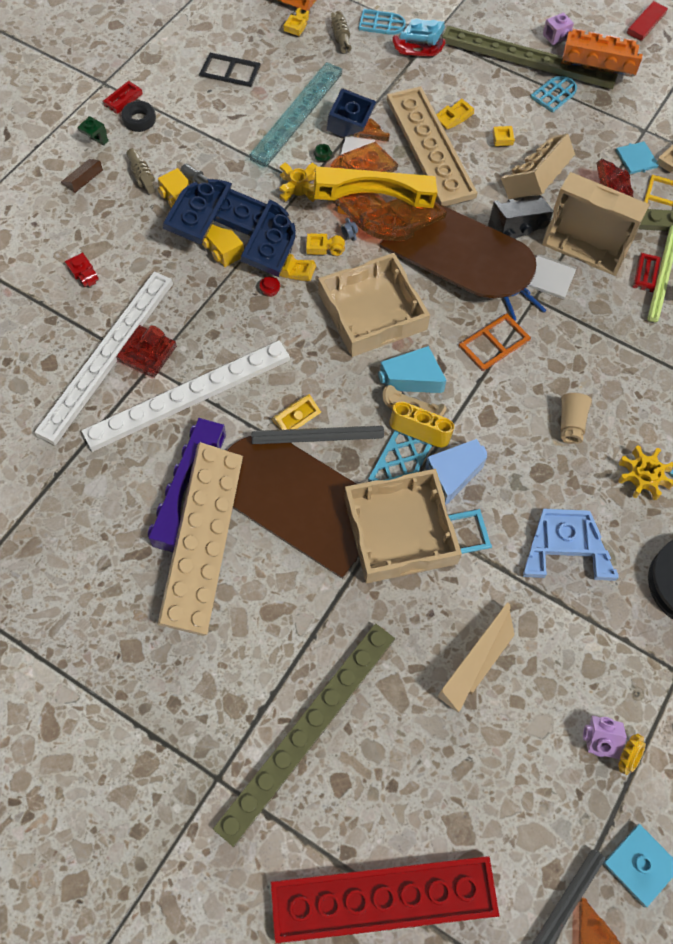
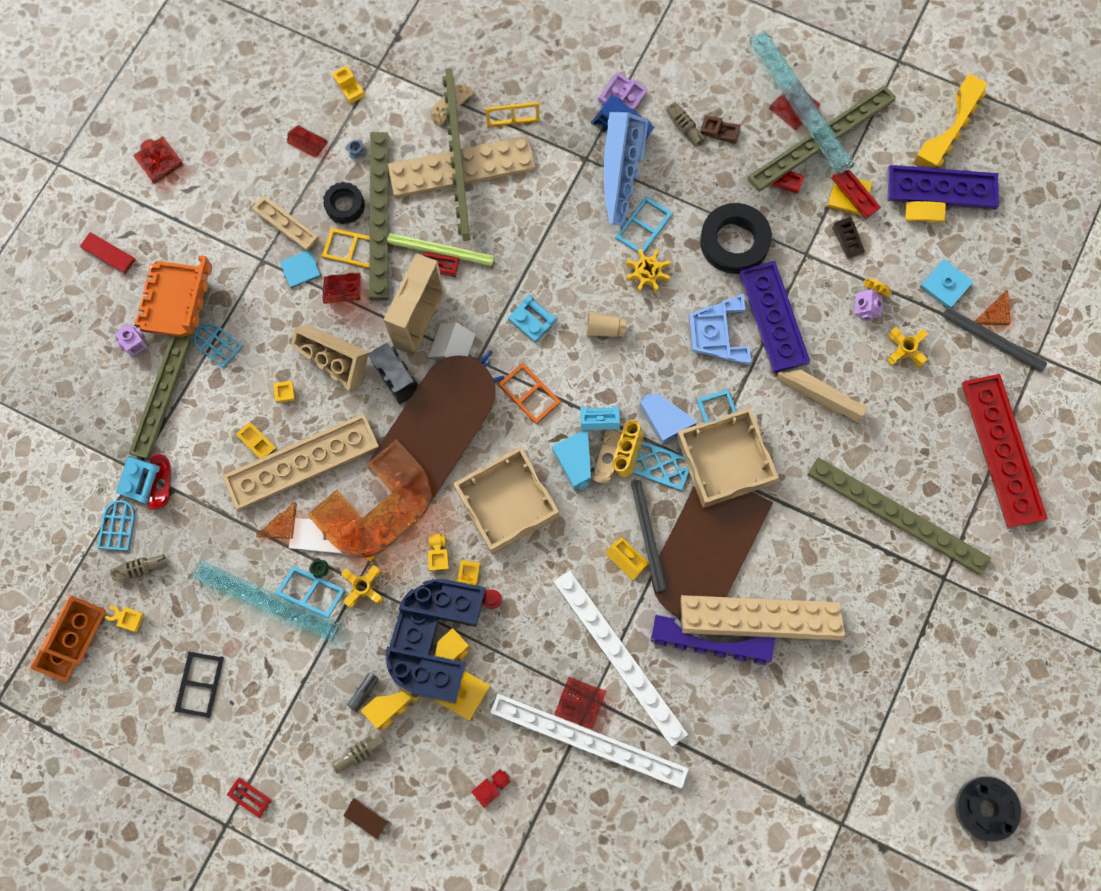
camera: 90 degrees left, 10 degrees up
(94, 129) = (311, 814): dark green bracket -> none
(138, 125) = (265, 772): black tyre -> none
(179, 256) = (469, 697): none -> yellow plate
(288, 136) = (316, 581): none -> medium azure window
(339, 182) = (380, 466): yellow arch -> none
(349, 113) = (271, 542): dark blue slope -> none
(349, 229) = (419, 530): sand blue plate -> none
(459, 398) = (599, 418): none -> medium azure plate
(555, 801) = (917, 358): none -> yellow pin
(578, 346) = (528, 323): none -> medium azure plate
(588, 613) = (774, 317): none -> dark purple plate

